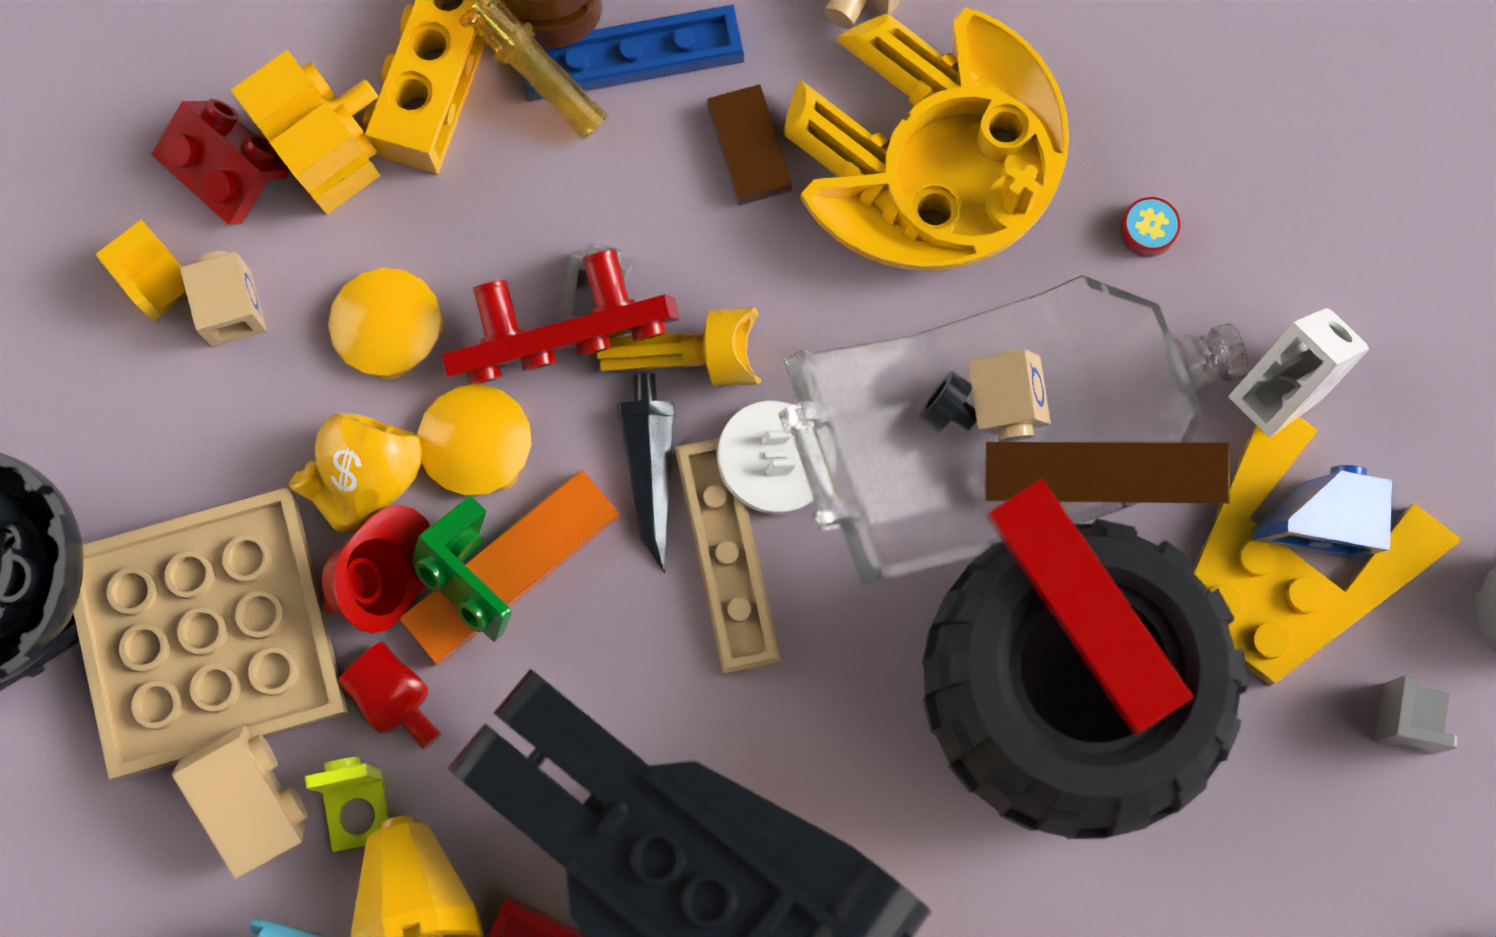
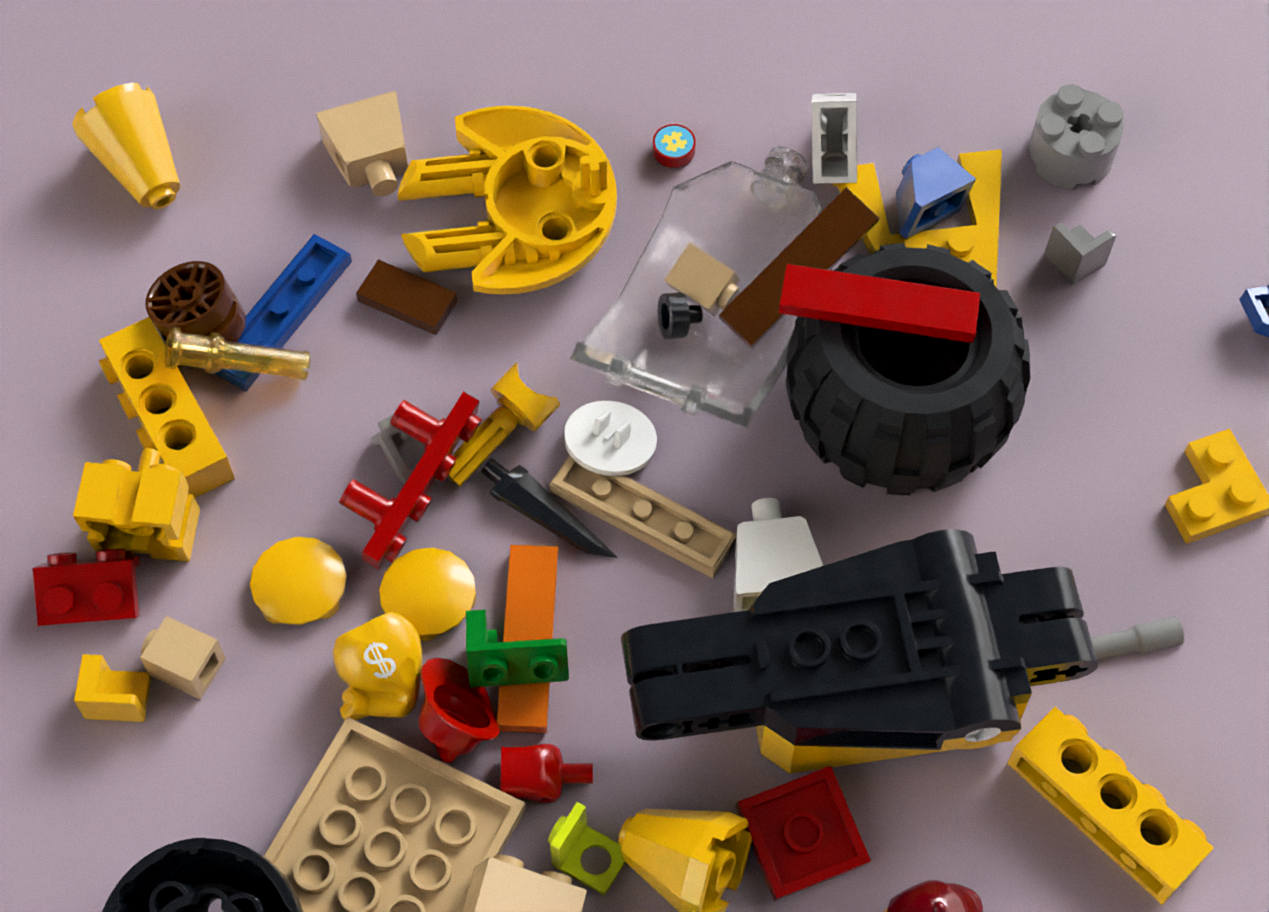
camera: 50 degrees left, 15 degrees down
(781, 719) = (770, 551): none -> white torso

